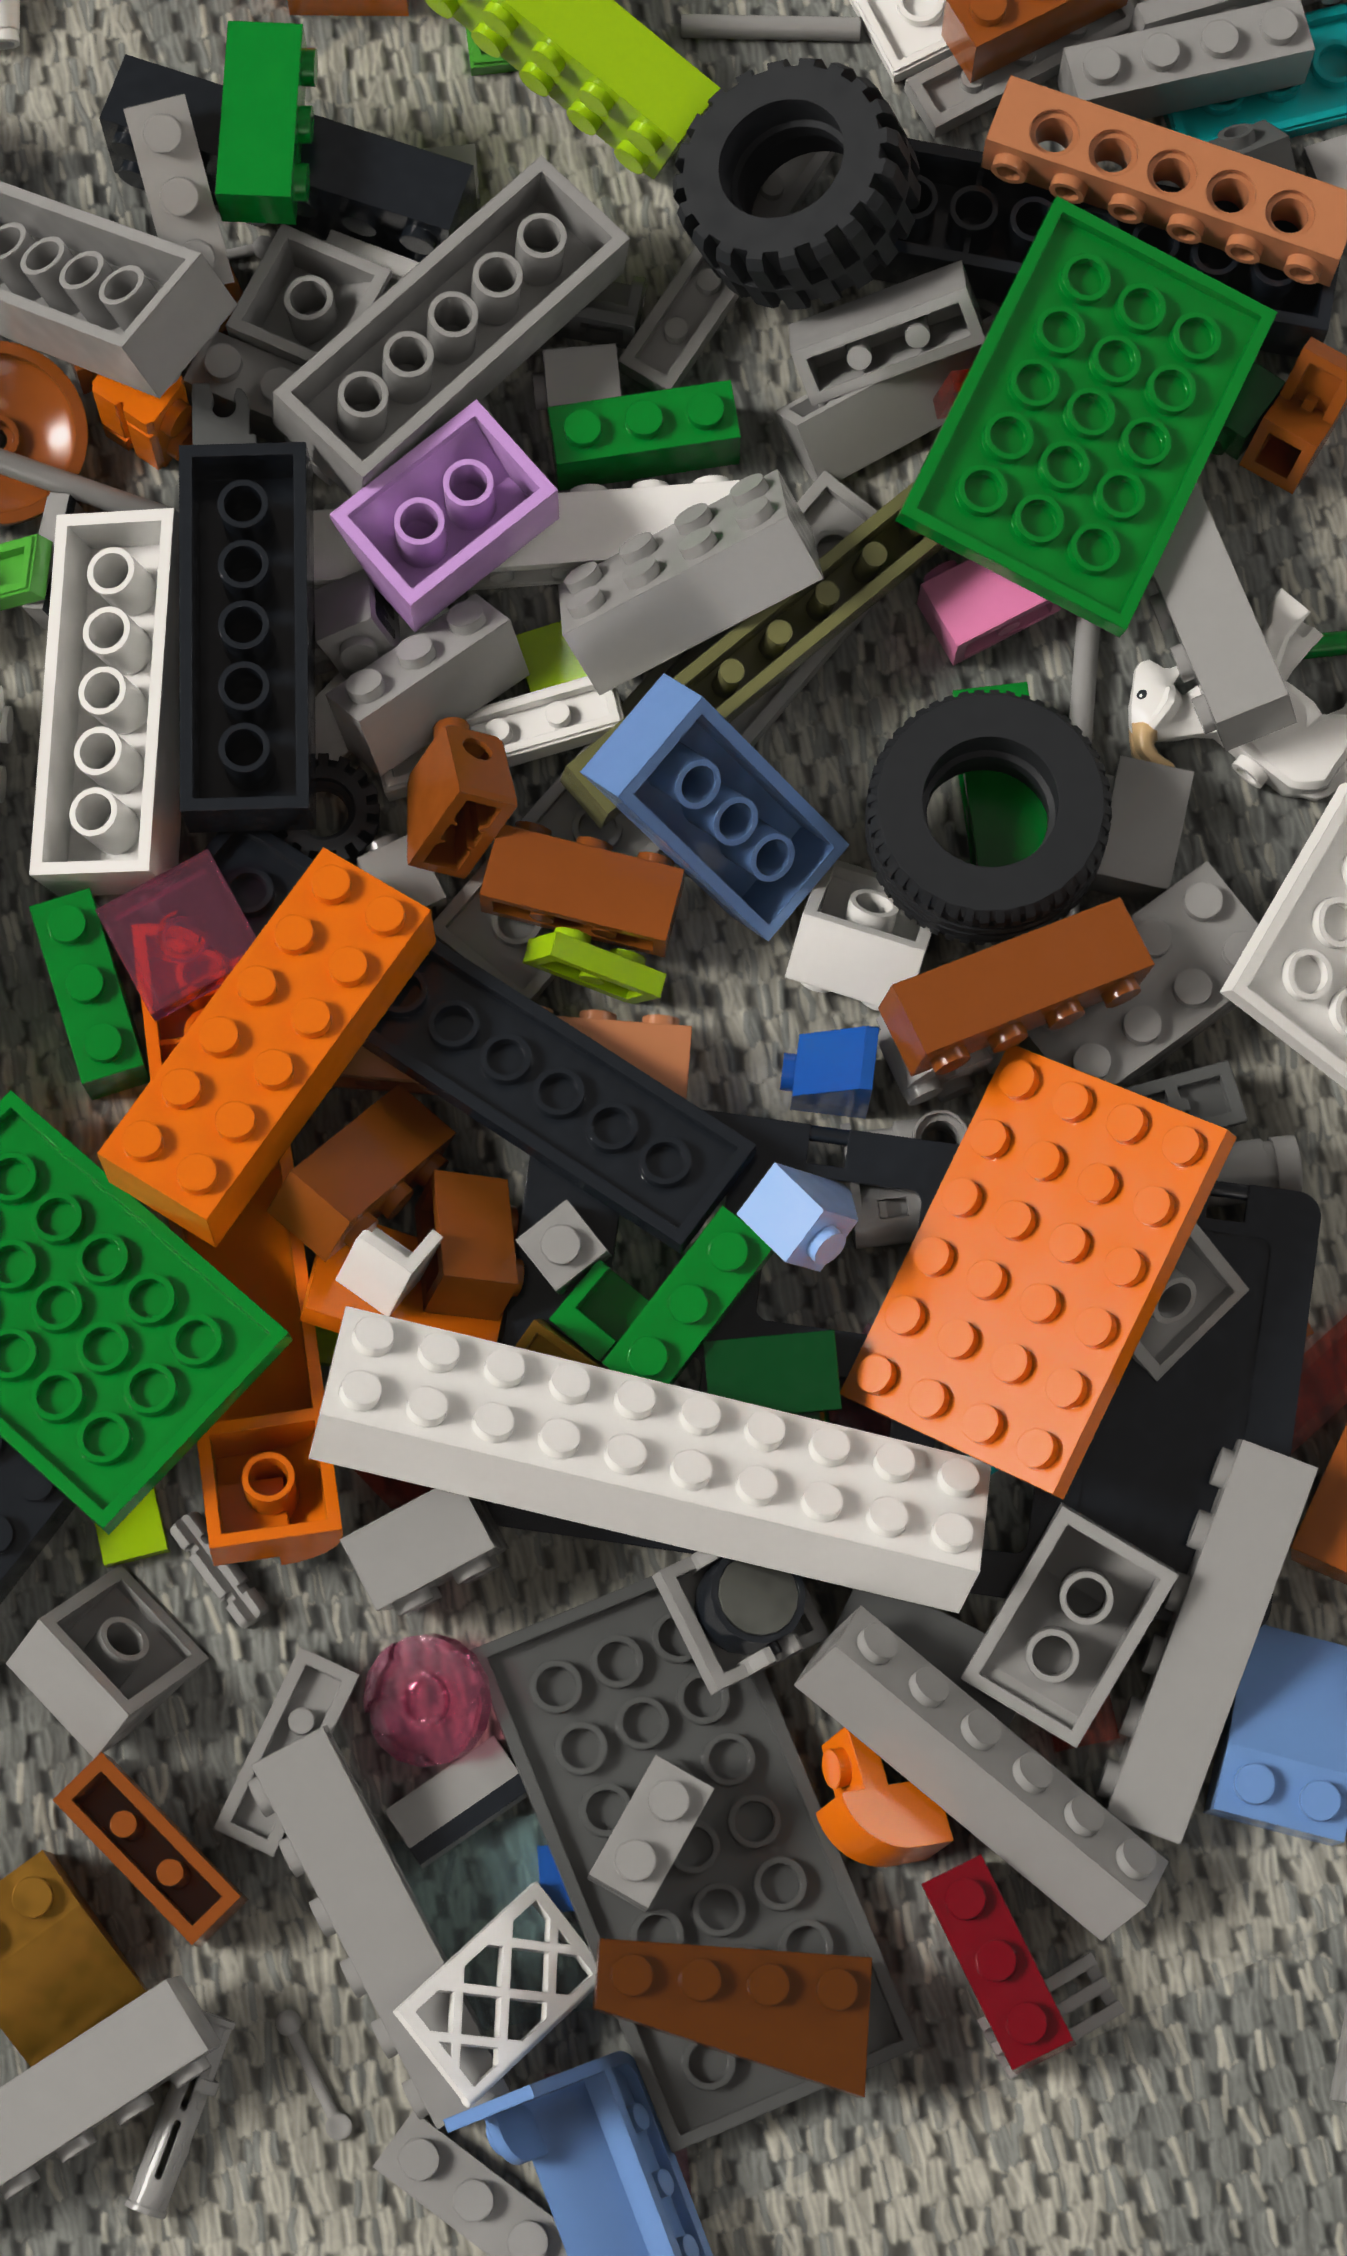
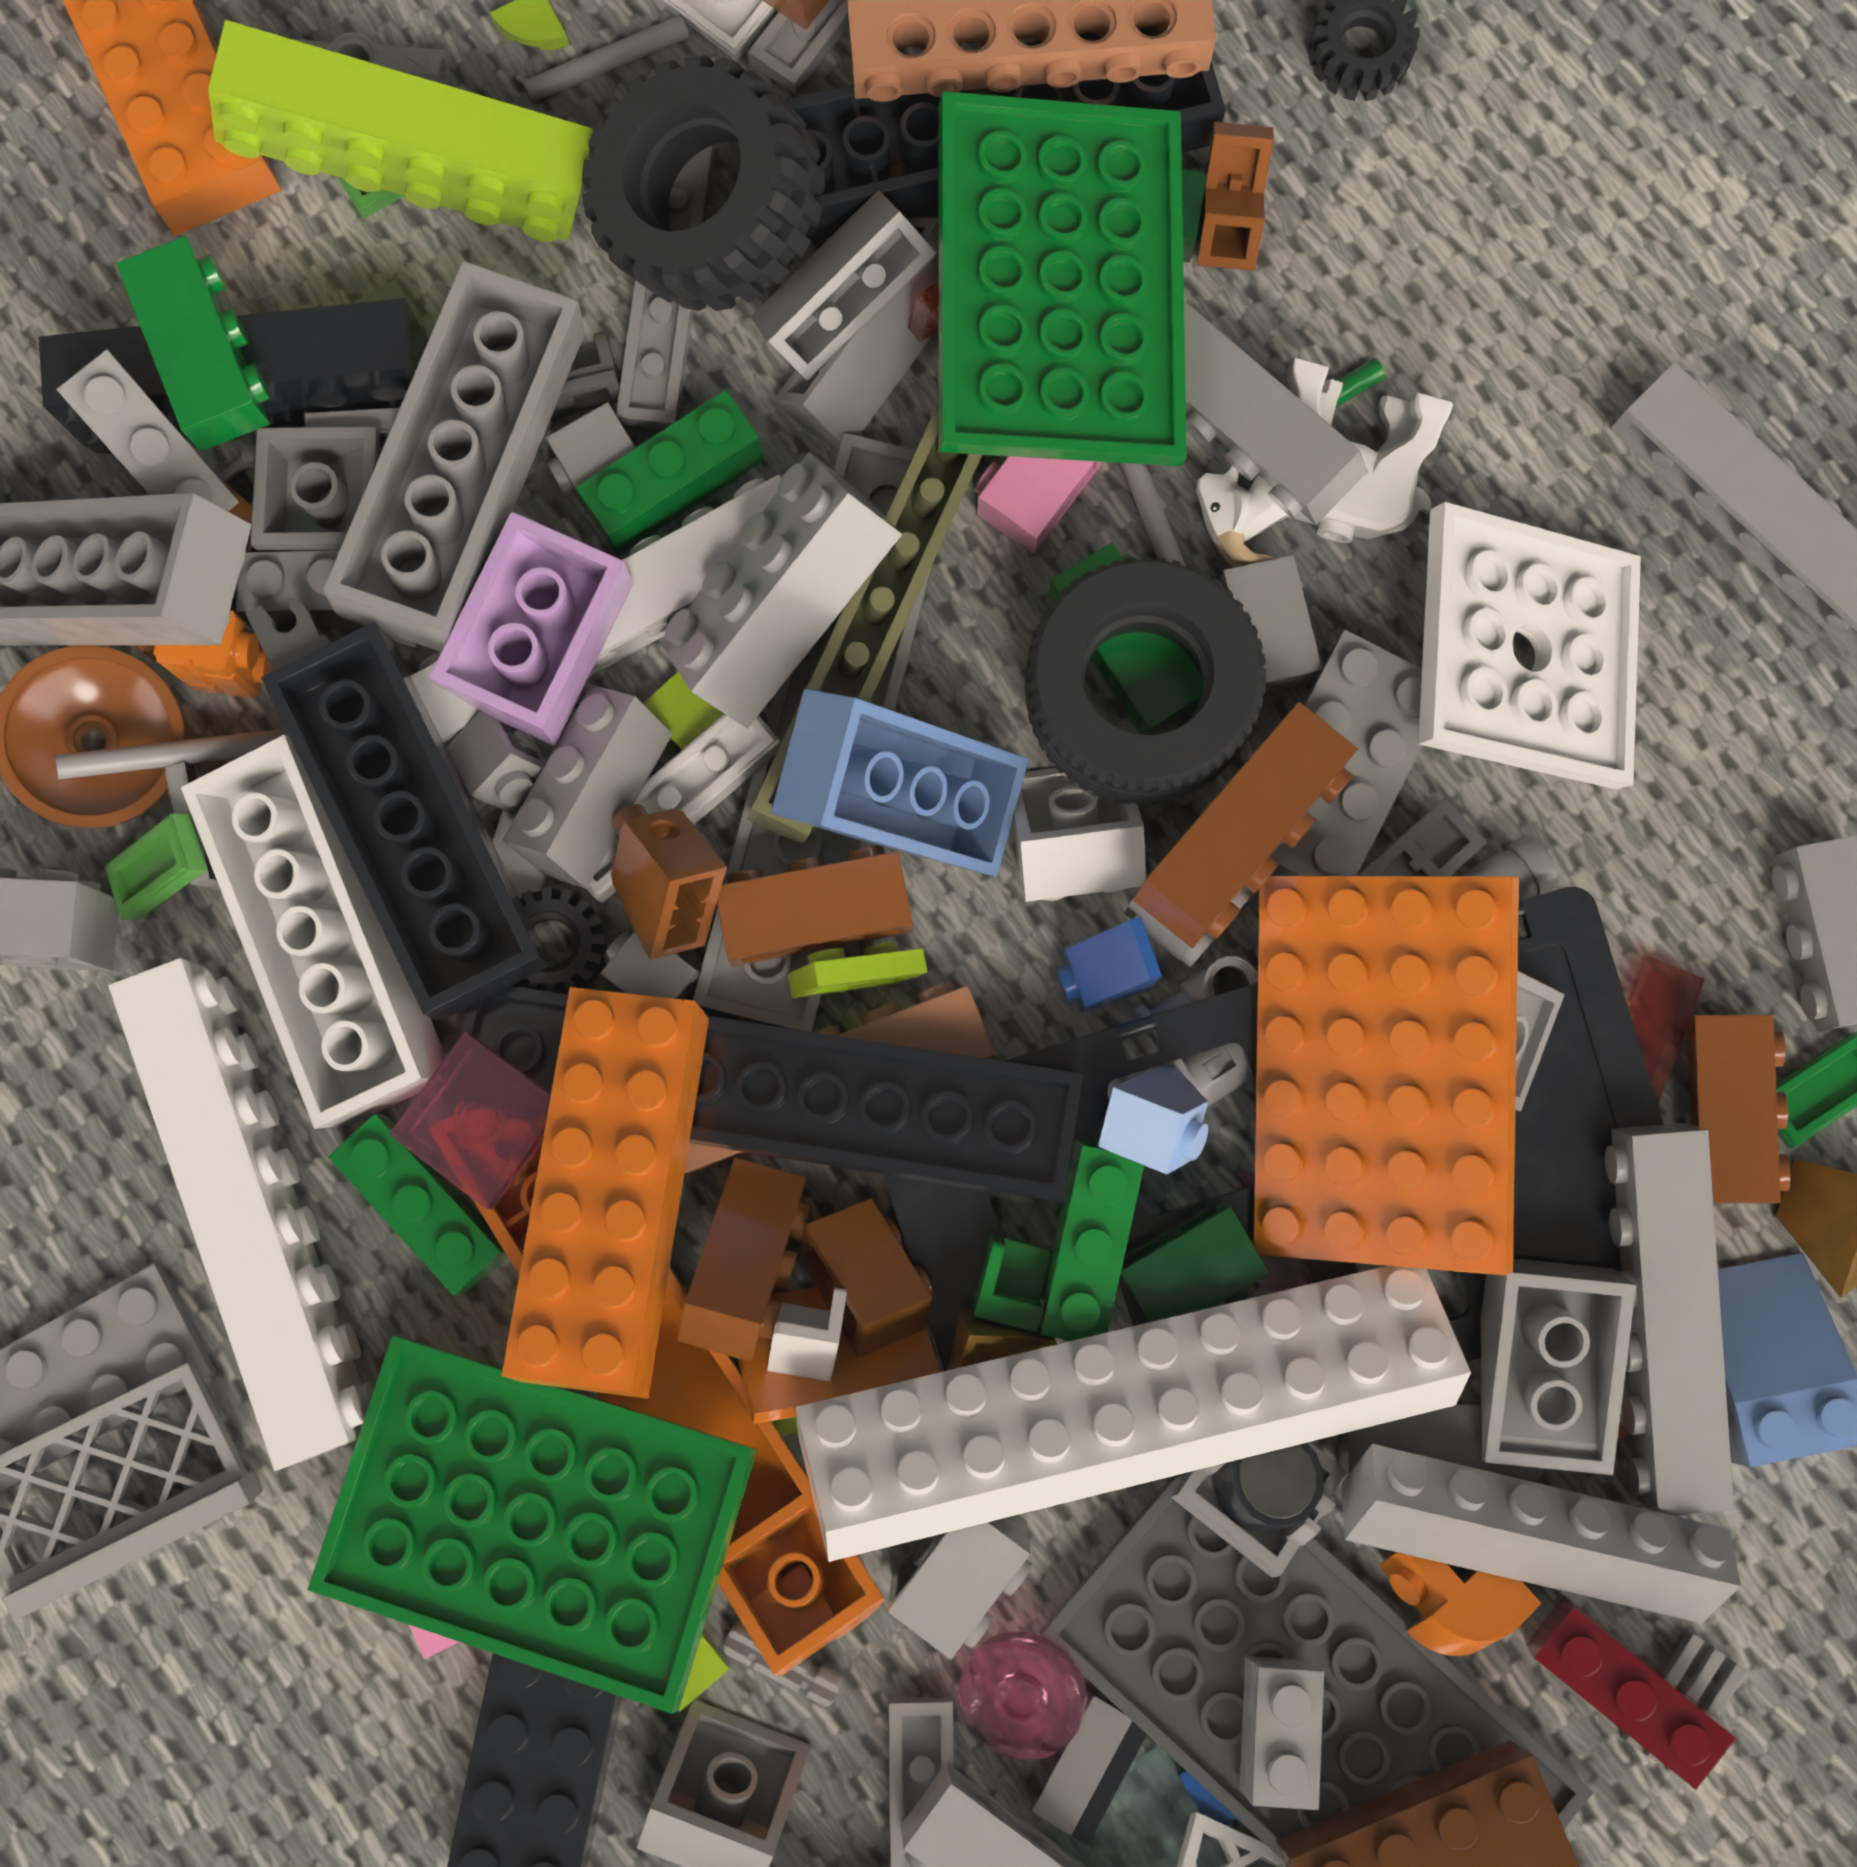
camera: 25 degrees left, 5 degrees up
(562, 1247) = (955, 1243): light grey brick -> none

